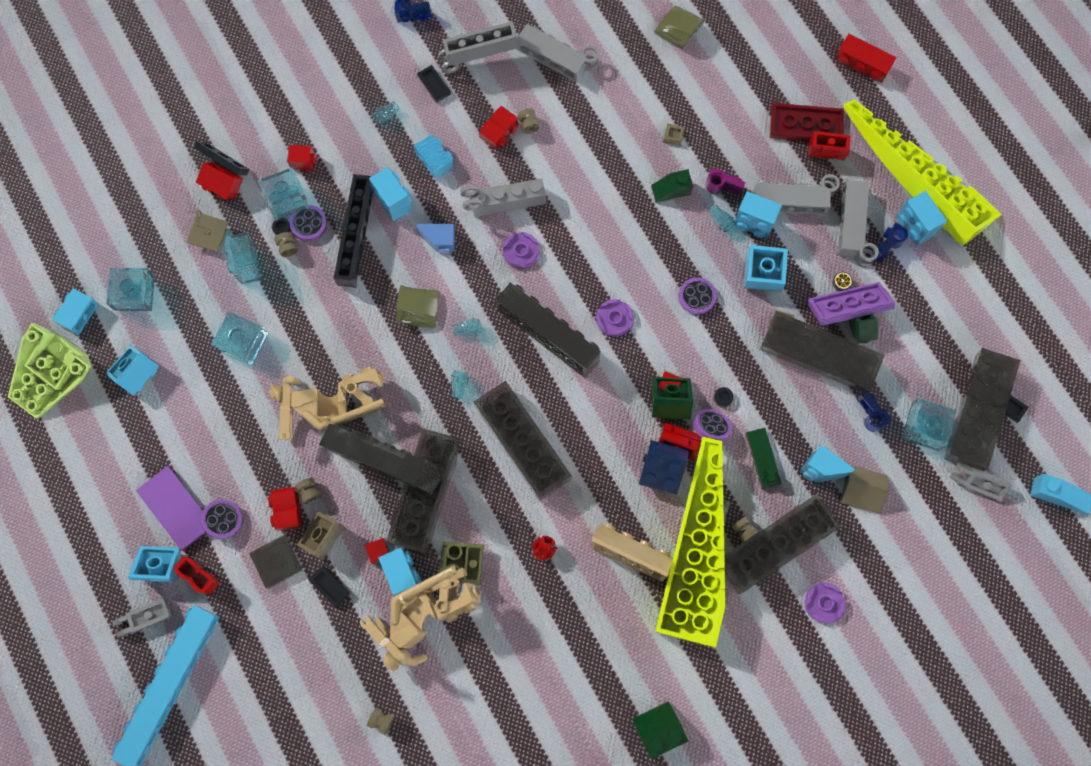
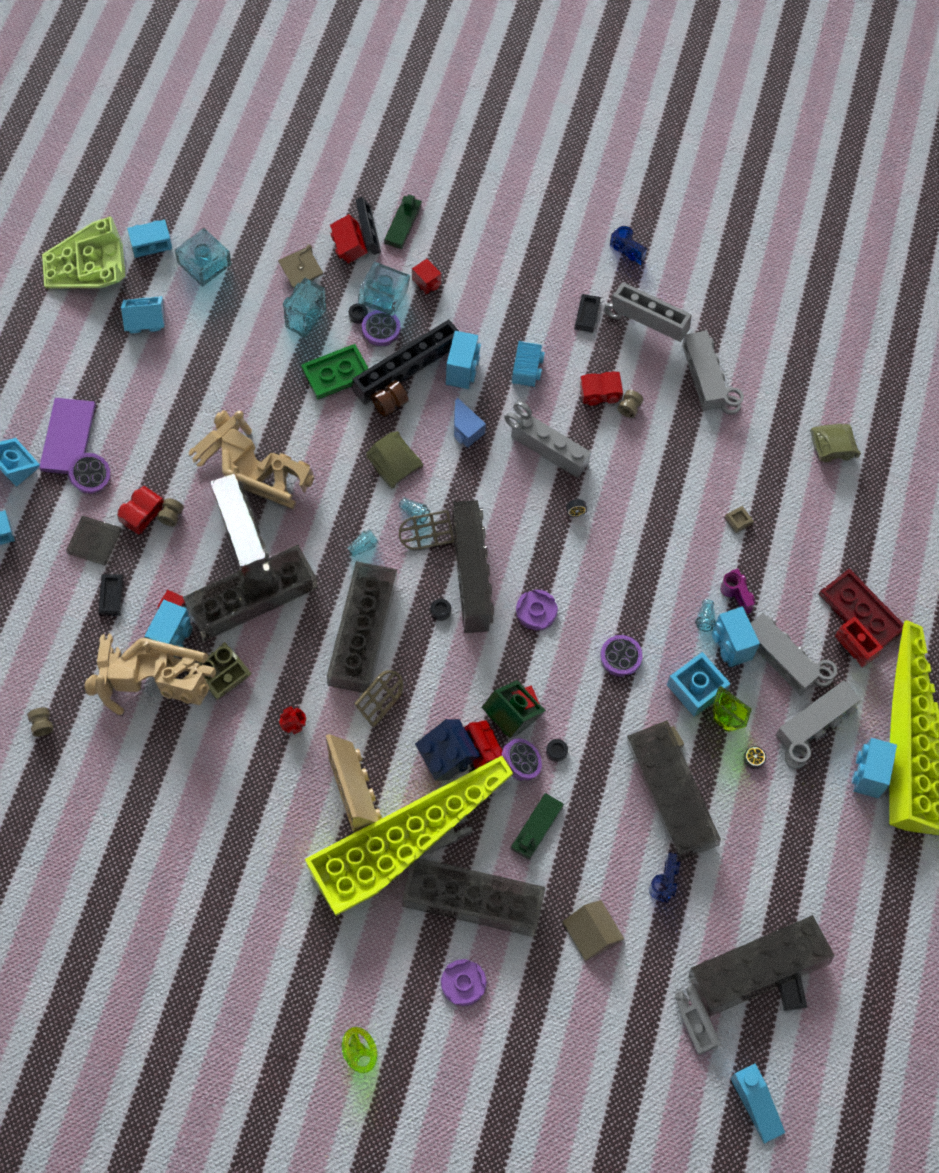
camera: 40 degrees right, 10 degrees down
(196, 575) = (29, 493): red brick -> none
(239, 338) = (240, 361): clear light blue brick -> none
(241, 133) = (403, 222): none -> dark green hinge
(286, 245) = (346, 328): dark tan wheel -> none
(311, 283) = (334, 371): none -> green plate
(320, 535) = (144, 554): dark tan slope -> none
(370, 263) = (391, 397): none -> reddish brown wheel
(385, 113) = (523, 300): clear light blue cone -> none
(483, 339) = (434, 534): none -> dark tan window
(520, 250) = (519, 493): medium lavender tile -> none
(555, 378) = (440, 609): none -> black tile
(568, 225) = (576, 508): none -> black tile
(584, 454) = (372, 696): none -> dark tan window
(660, 730) = (228, 940): dark green slope -> none
(672, 186) = (692, 555): dark green slope -> none
(745, 528) = (462, 857): dark tan wheel -> none
(804, 266) = (730, 711): none -> clear neon green slope
(811, 715) = (355, 1050): none -> clear neon green piece
(825, 466) = (574, 875): medium azure slope -> none
(851, 303) = (740, 778): medium lavender tile -> none
(864, 328) = (734, 802): dark green slope -> none
(890, 241) = (819, 764): clear blue plate -> none
(929, 424) = (700, 931): clear light blue brick -> none

